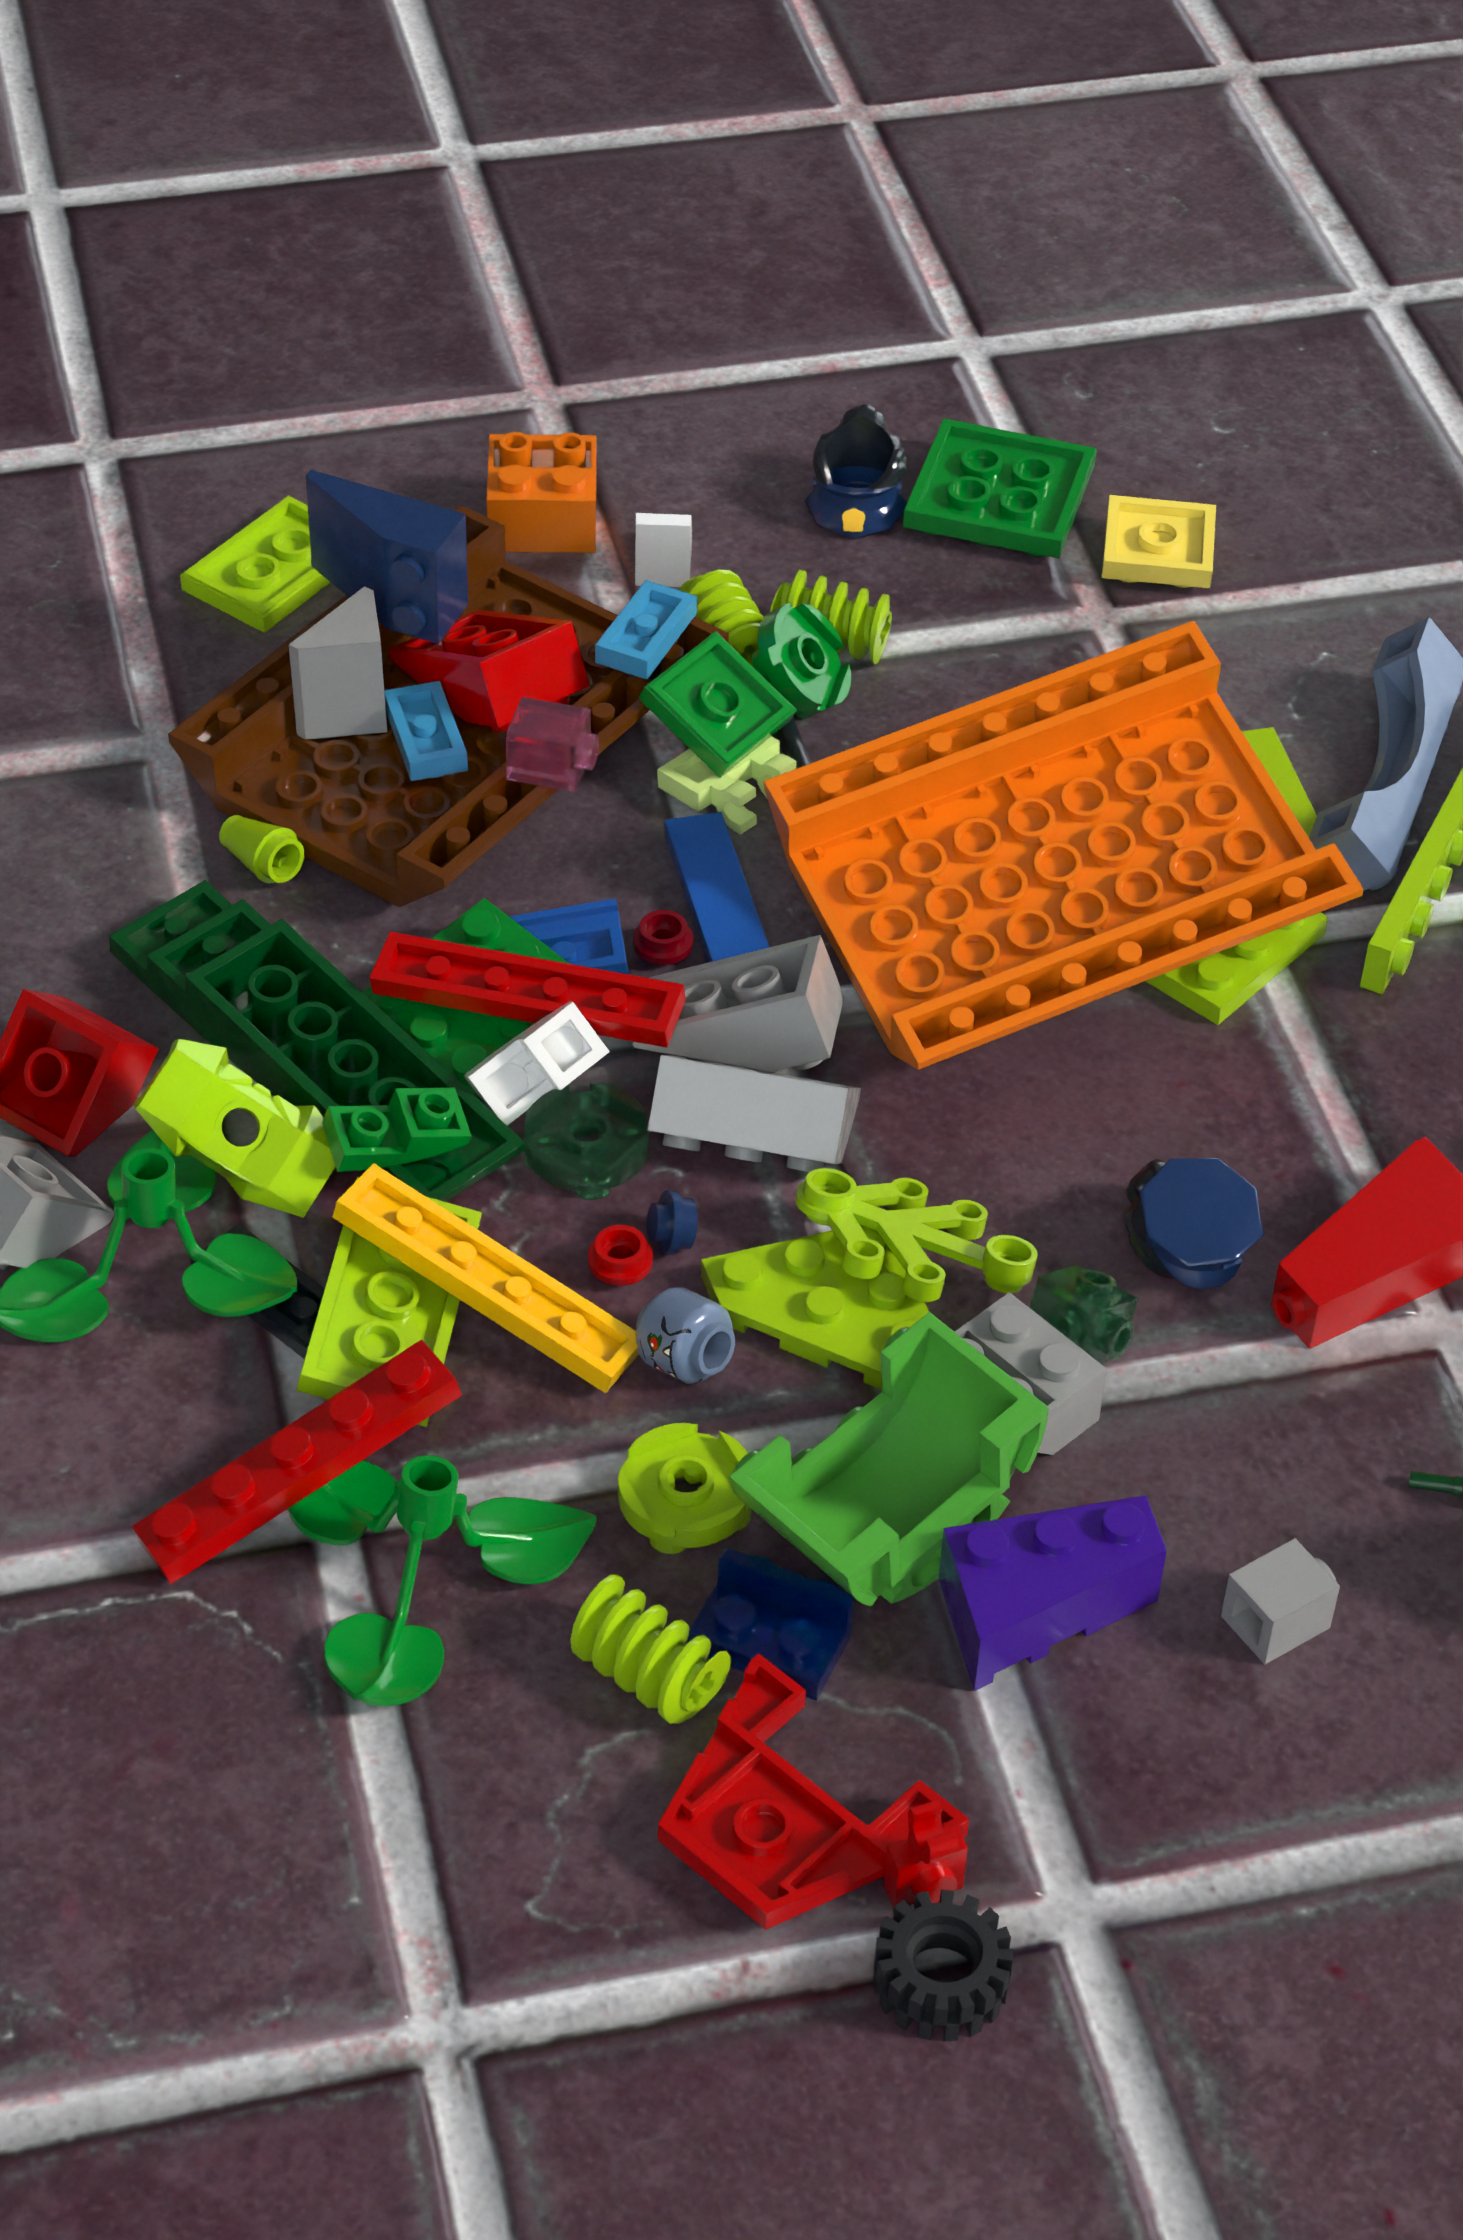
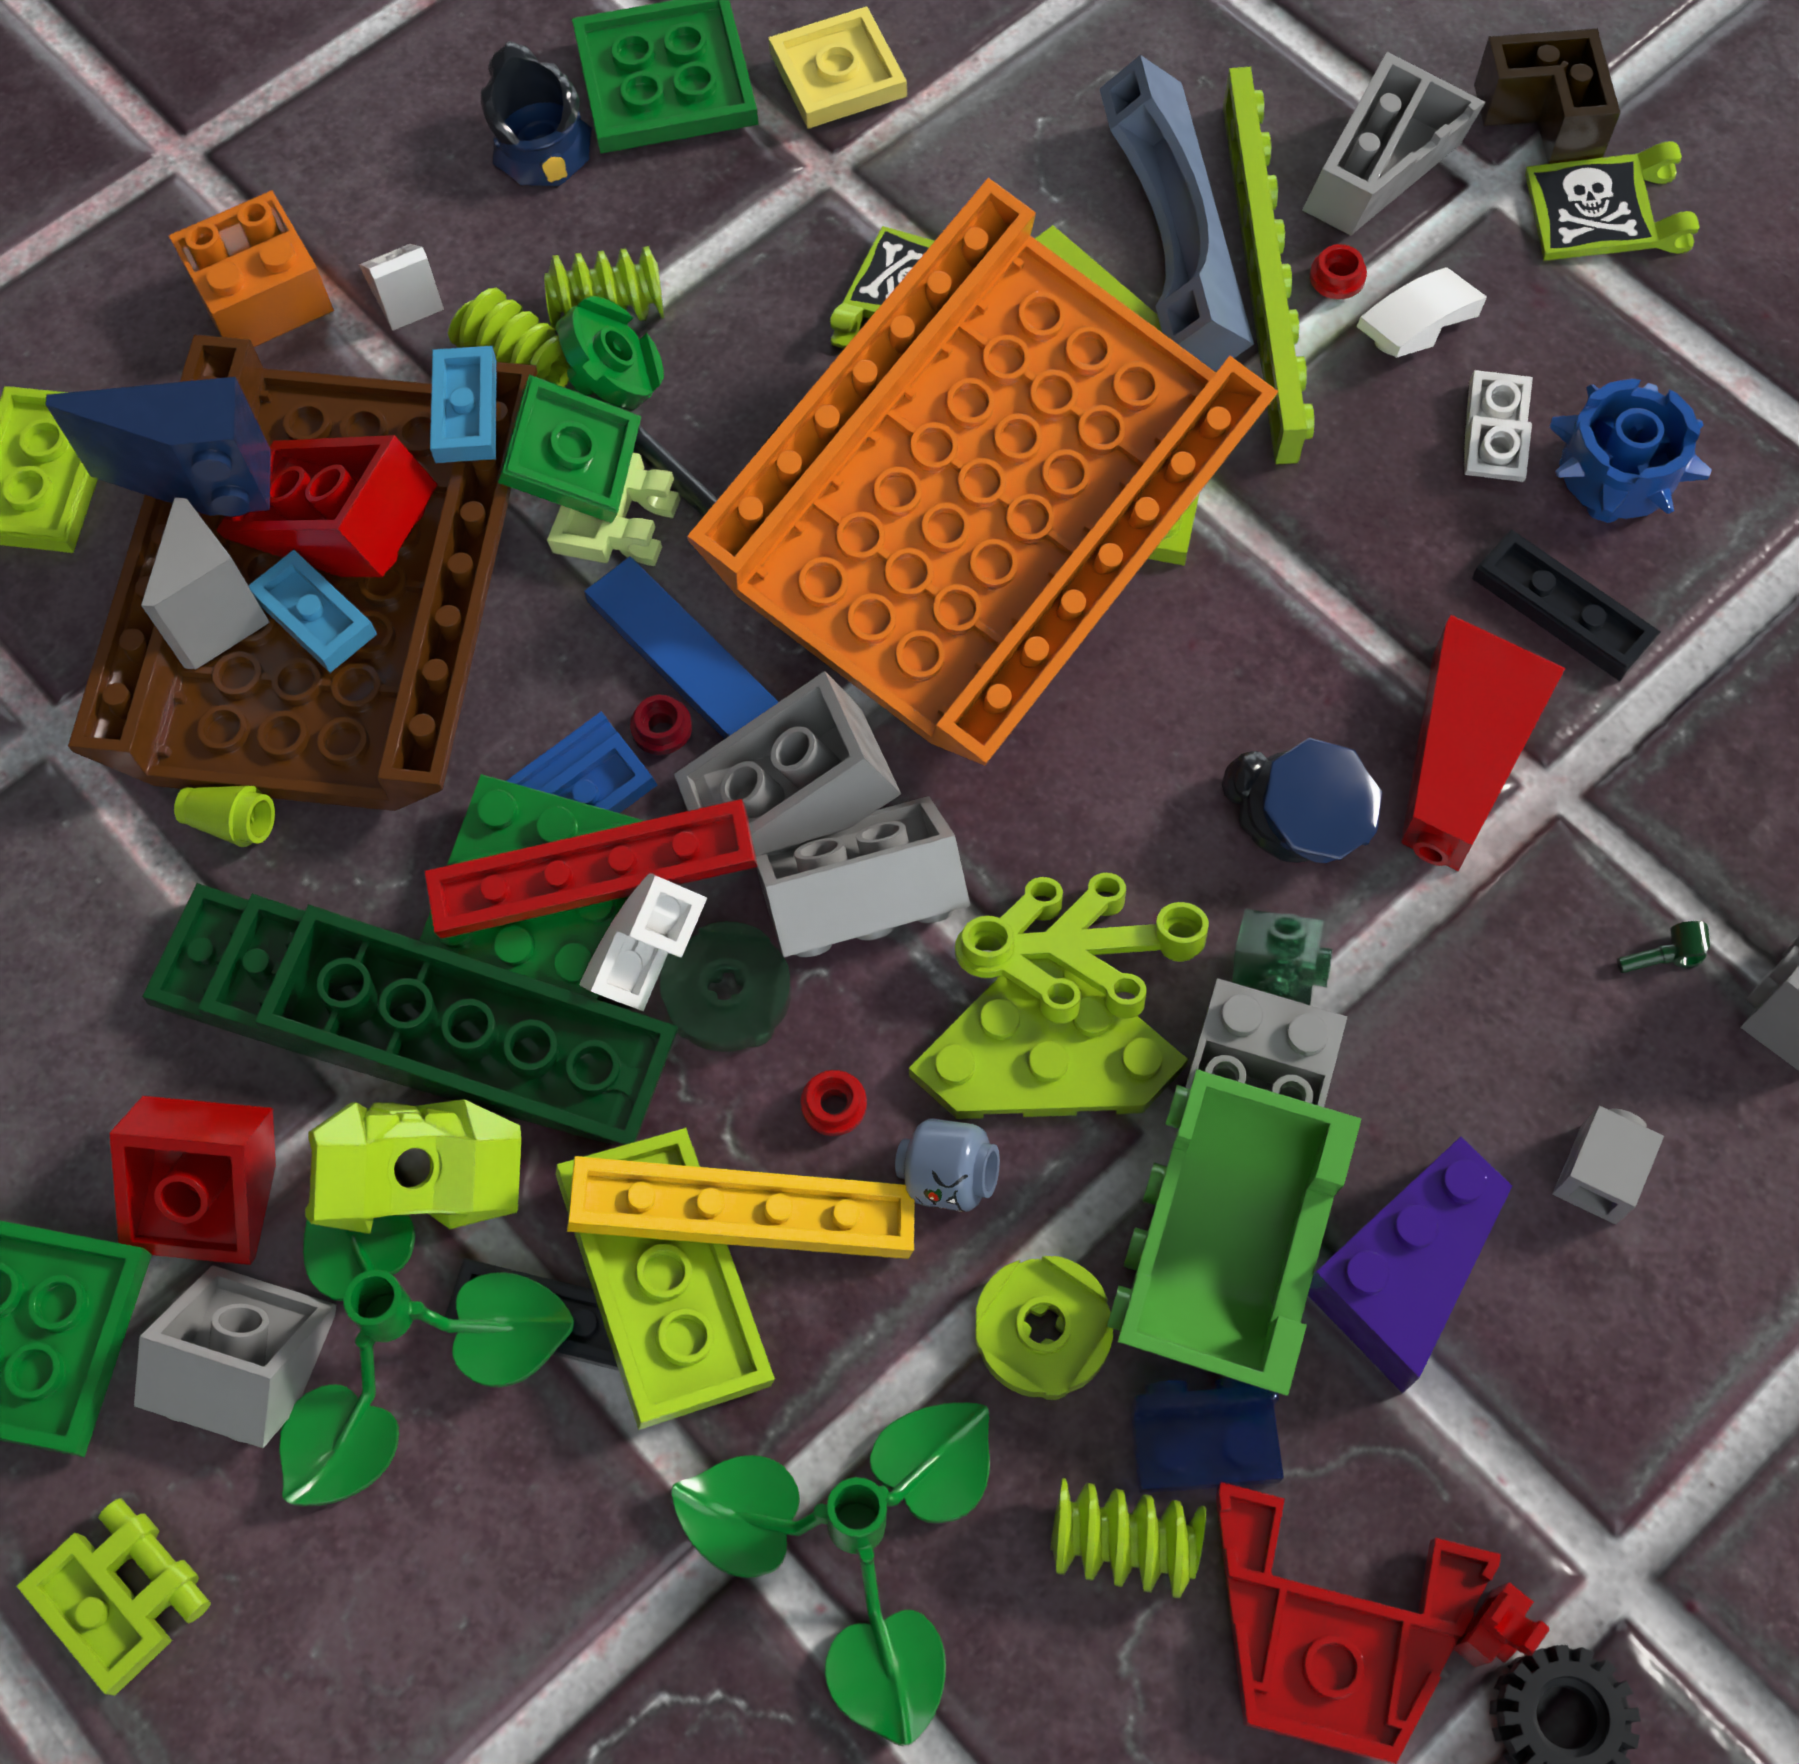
camera: 25 degrees left, 20 degrees up
(296, 1461) = (690, 1518): red plate -> none
(409, 1129) = (559, 1087): green slope -> none
(550, 744) = (456, 585): clear pink brick -> none
(672, 1222) = (860, 1042): dark blue plate -> none

